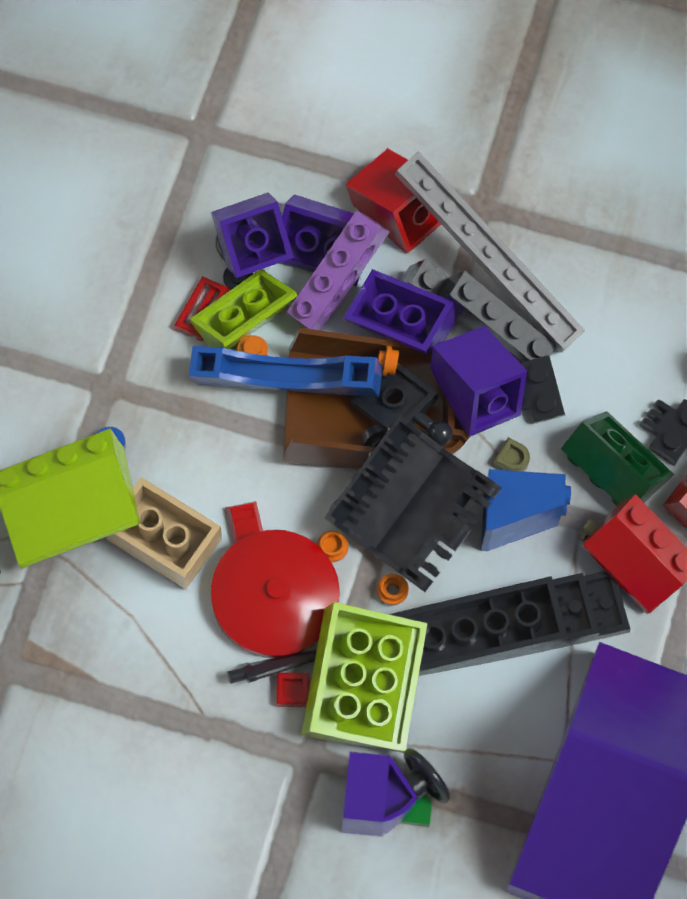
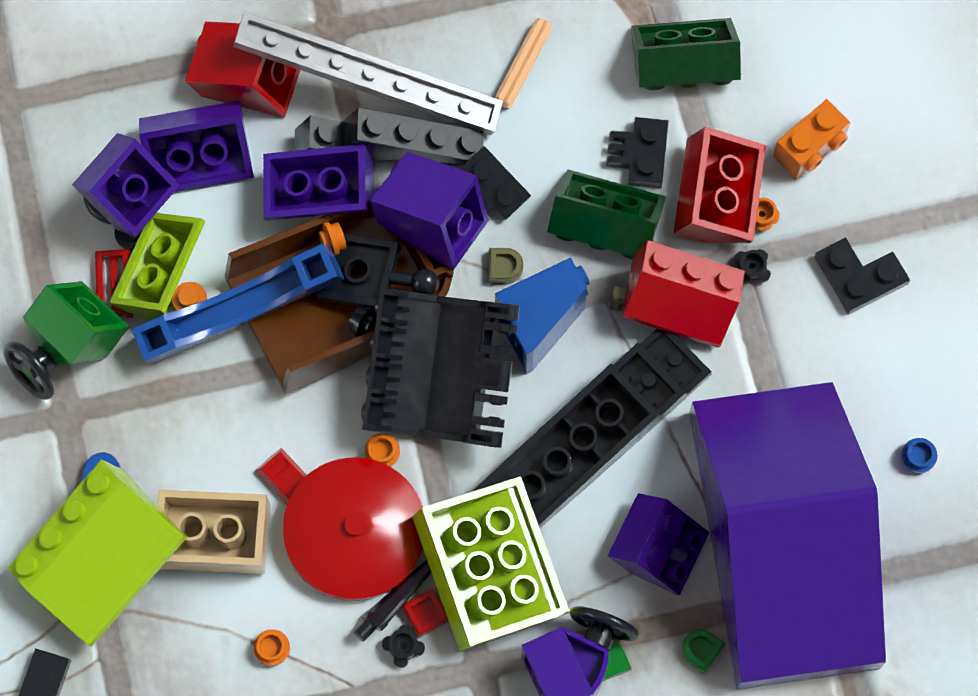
camera: 25 degrees left, 5 degrees up
(146, 320) = (67, 328): none -> green piece
(157, 648) = (271, 647): none -> orange plate
(265, 697) = (393, 642): none -> black plate
(338, 271) = (231, 175): medium lavender brick -> none
(396, 581) = (457, 452): orange plate -> none
(495, 843) = (701, 649): none -> green tile
(509, 739) = (658, 543): none -> dark purple slope
(619, 310) = (523, 62): none -> light nougat axle

